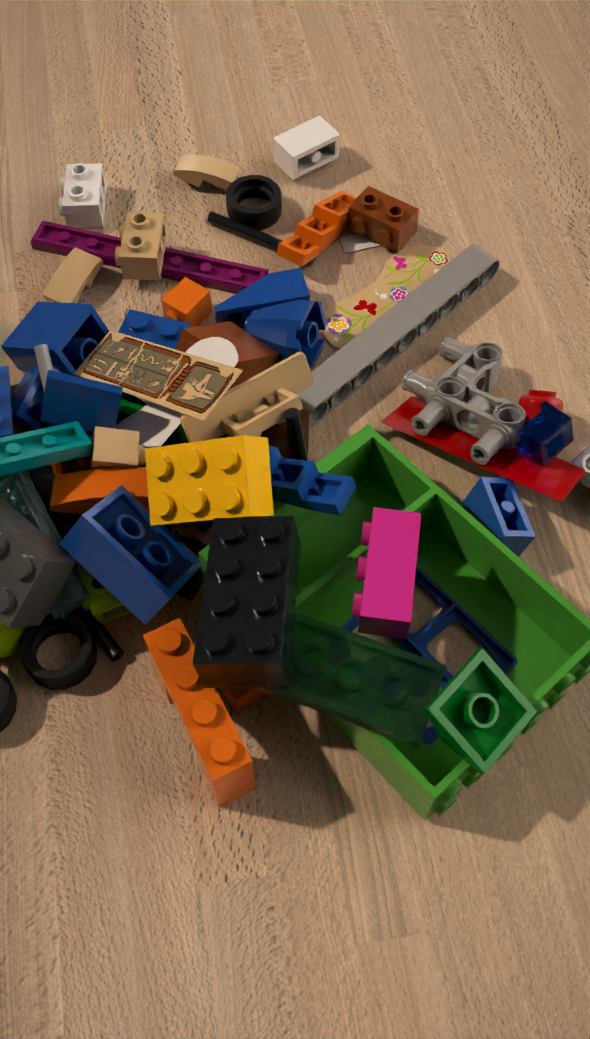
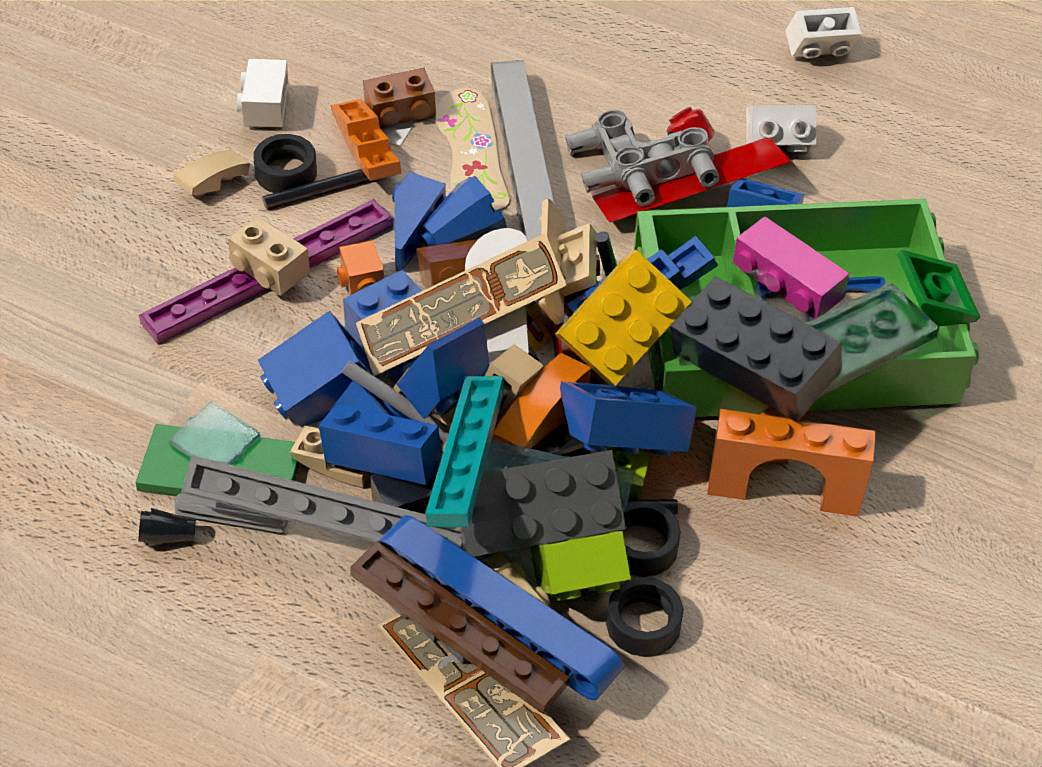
camera: 55 degrees left, 10 degrees down
(72, 276) = (243, 328): tan slope -> none
(83, 195) = (145, 267): white brick -> none
(545, 434) = (725, 132): clear blue brick -> none

